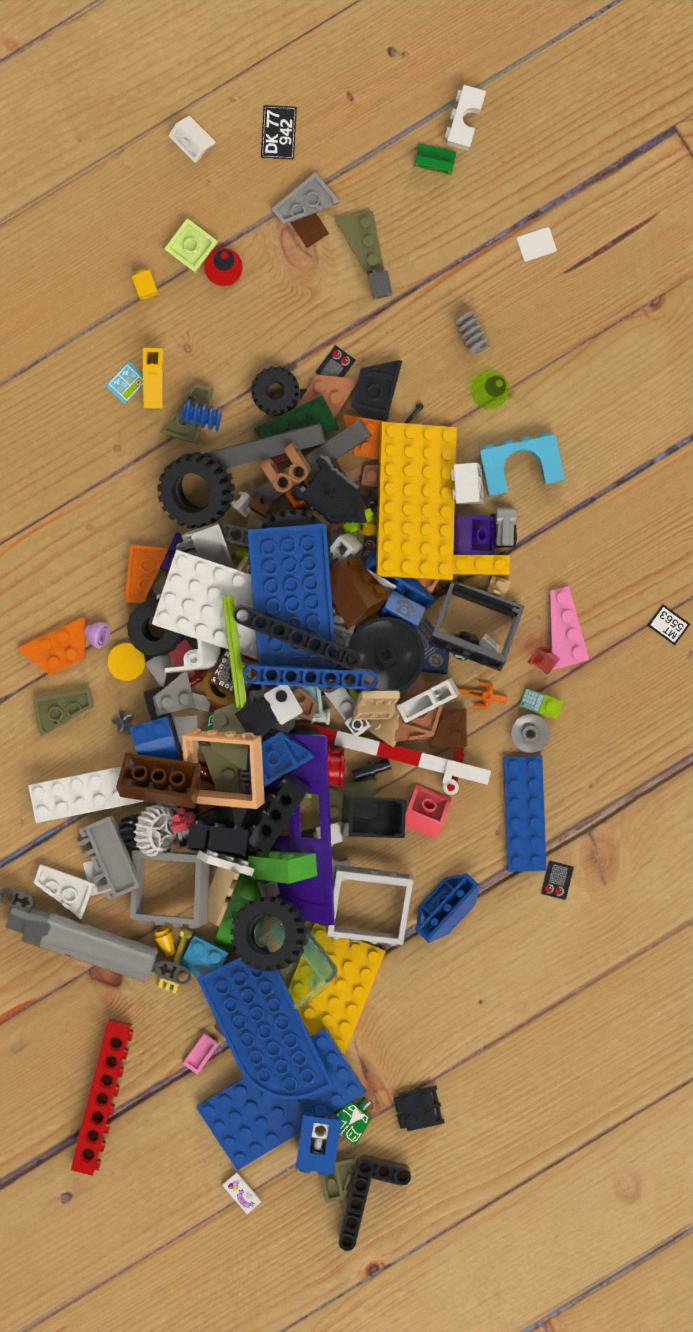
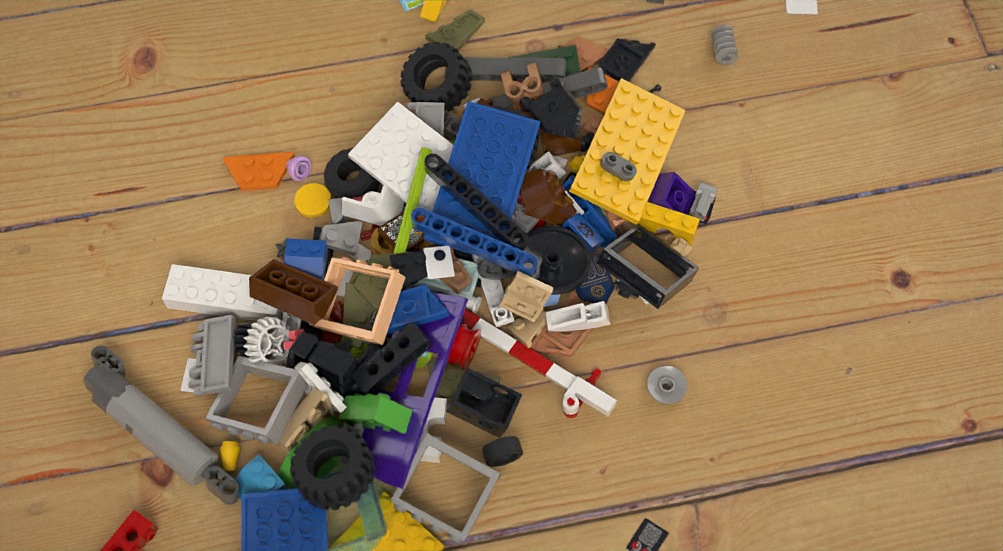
camera: 20 degrees right, 25 degrees down
(60, 708) = (235, 217): olive wing -> none
(65, 888) = (160, 373): white wing -> none
(142, 571) = (357, 130): orange wing -> none
(185, 936) = (251, 454): light yellow hinge -> none
(201, 415) = (465, 28): blue piece -> none
(271, 405) = (536, 24): black tyre -> none
(336, 363) = (598, 35): black sticker -> none
(353, 527) = (570, 150): lime plate -> none
(371, 769) = (498, 366): black pin -> none
(406, 853) = (502, 451): none -> black tyre
(415, 532) = (618, 167): none -> dark grey plate
(426, 811) = (536, 423): coral slope -> none
(446, 906) = (525, 521): blue wedge -> none
(451, 730) = (590, 357): reddish brown wing -> none
(468, 483) = (681, 151): white slope -> none
(486, 695) = (635, 339): orange piece -> none
(490, 389) = (725, 94): clear neon green tile -> none
(524, 813) = (635, 462): blue plate -> none
(541, 703) = (689, 362): slope -> none
(543, 448) = (757, 148): medium azure arch -> none
(544, 659) = (702, 321): clear red panel -> none
(565, 629) = (731, 310): bright pink wing -> none
(668, 624) = (834, 336): sticker -> none

